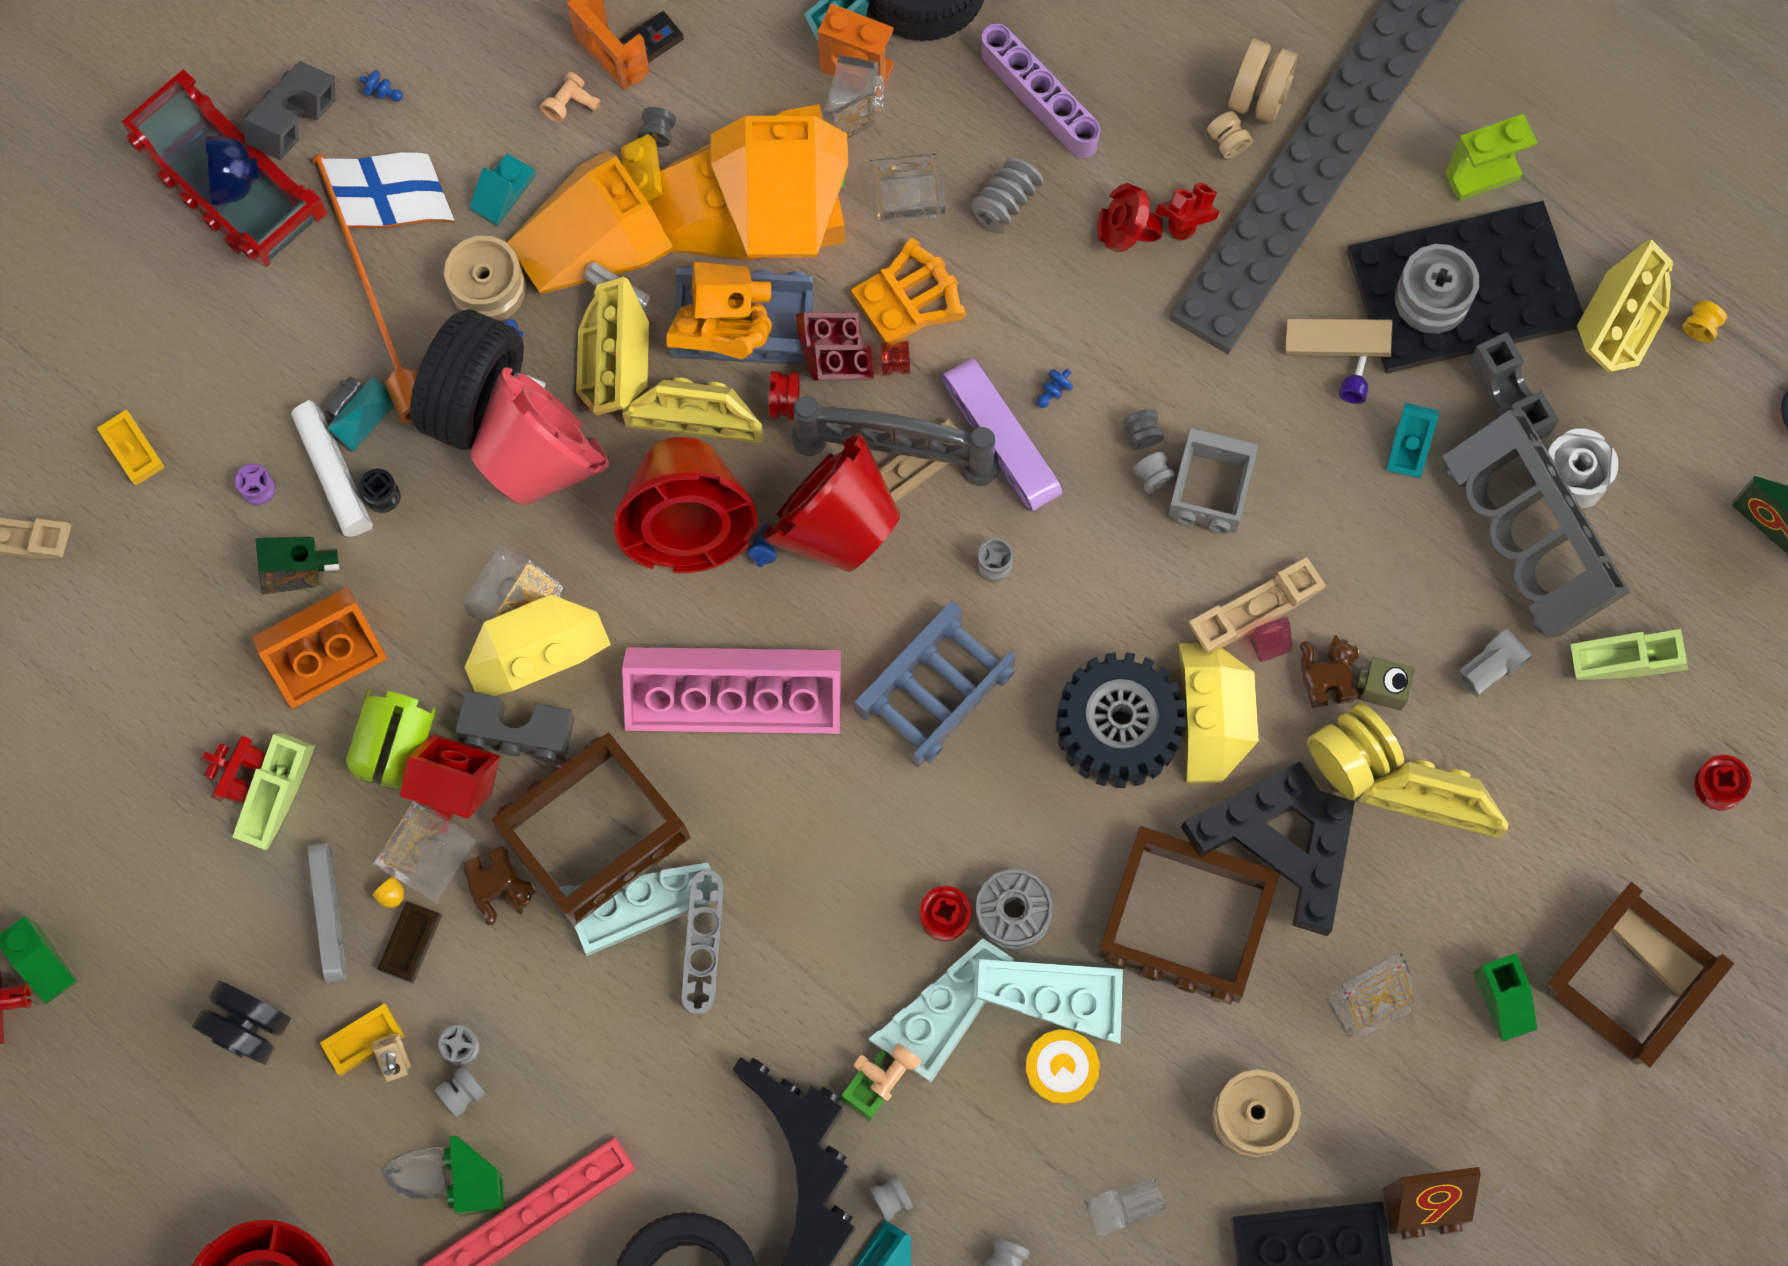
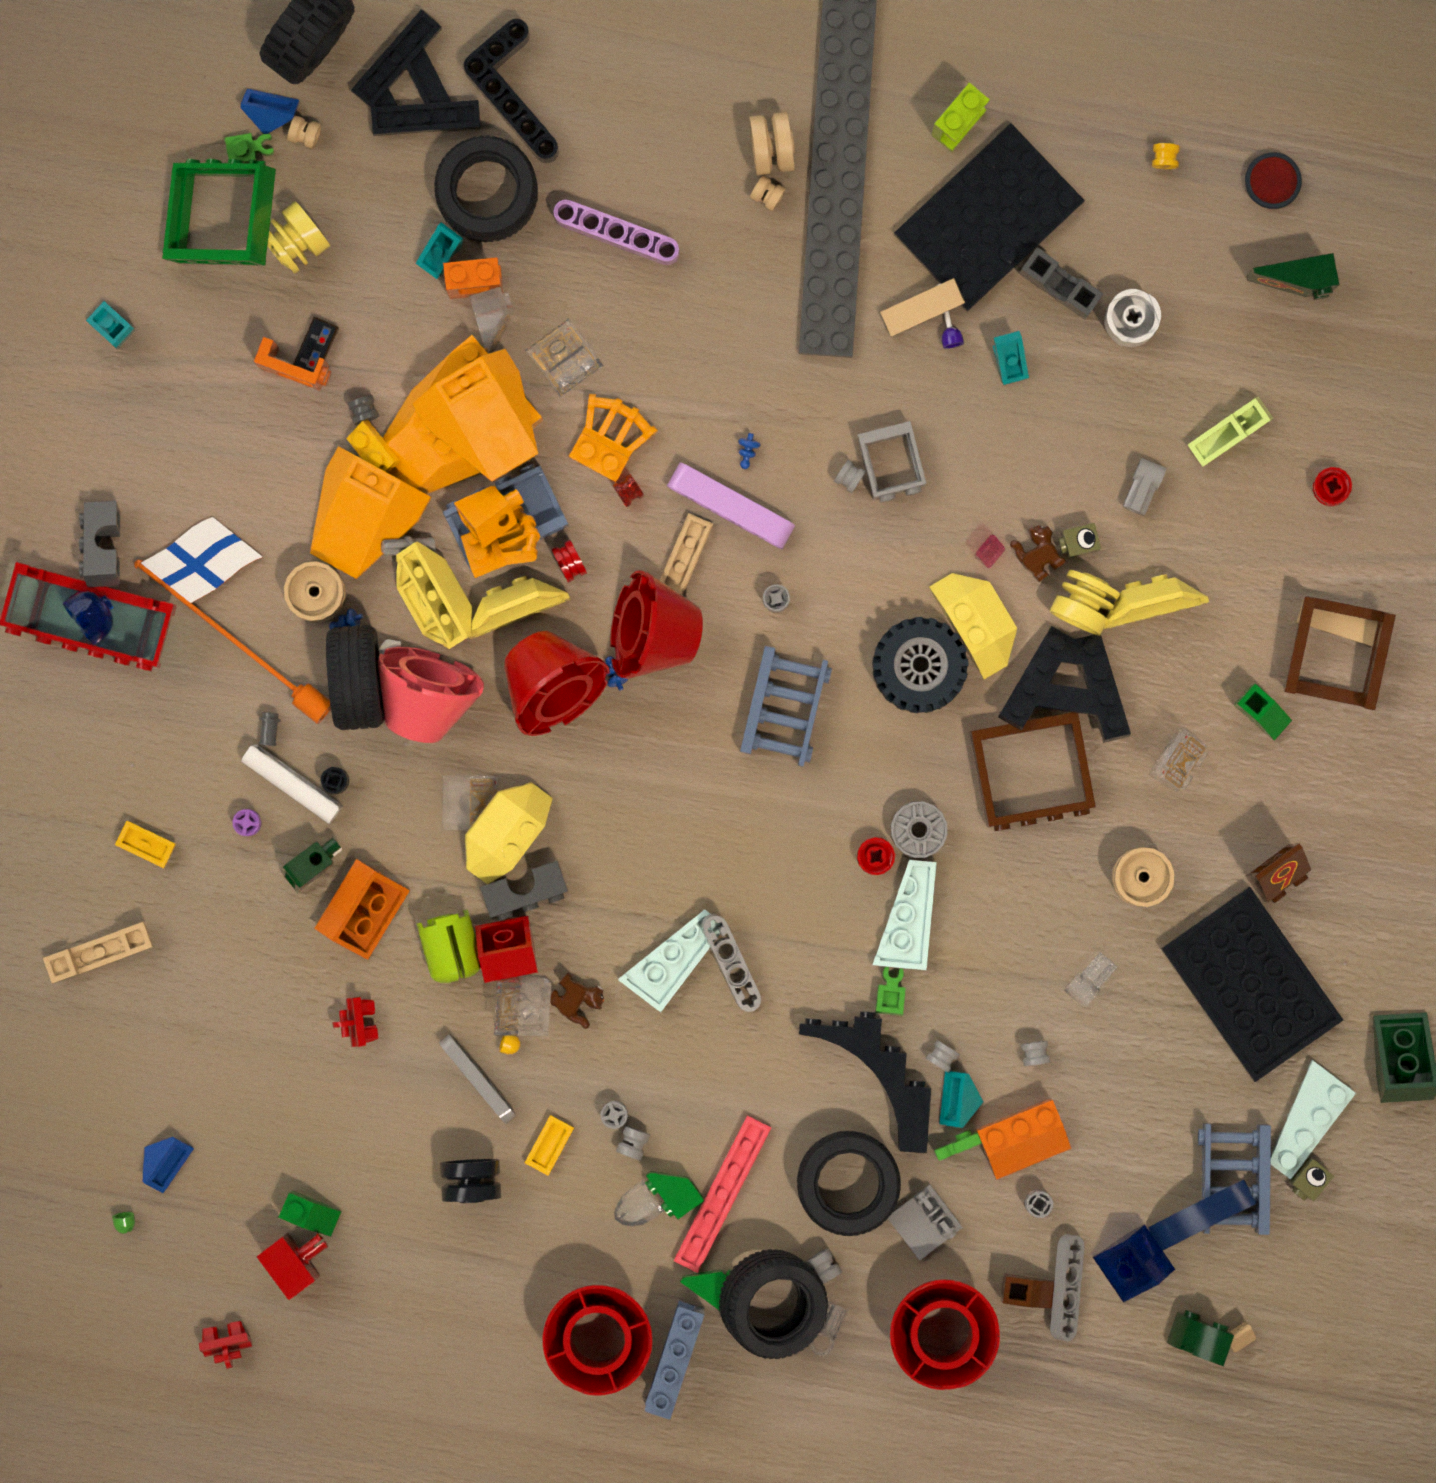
camera: 30 degrees left, 15 degrees up
(273, 790) = (391, 1020): yellowish green slope -> none
(361, 414) = (287, 733): teal slope -> none
(383, 88) = (150, 486): blue hair -> none
(388, 1053) = (576, 1146): tan piece -> none
(409, 942) = (541, 1067): dark brown tile -> none
(500, 188) = (281, 515): teal slope -> none
(555, 107) = (284, 413): light nougat piece -> none
(621, 871) = (656, 944): reddish brown window -> none
(732, 690) = (653, 785): bright pink slope -> none
(834, 346) = (583, 507): dark red slope -> none
(886, 1080) = (900, 986): light nougat piece -> none
(973, 449) = (602, 577): dark grey piece -> none
(1005, 193) = (636, 326): light grey piece -> none
(1060, 994) = (979, 868): light aqua wing -> none
(1062, 1067) = (1004, 912): yellow tile -> none
(1128, 219) = (732, 301): red tile -> none
(1143, 429) = (825, 448): dark grey wheel -> none
(1189, 210) = (771, 269): red hips -> none
(1258, 607) = (967, 534): tan slope -> none
(1436, 288) = (976, 224): light grey wheel -> none
(1472, 466) = (1164, 427): dark grey fence -> none
(1628, 308) = (1108, 180): light yellow wedge -> none

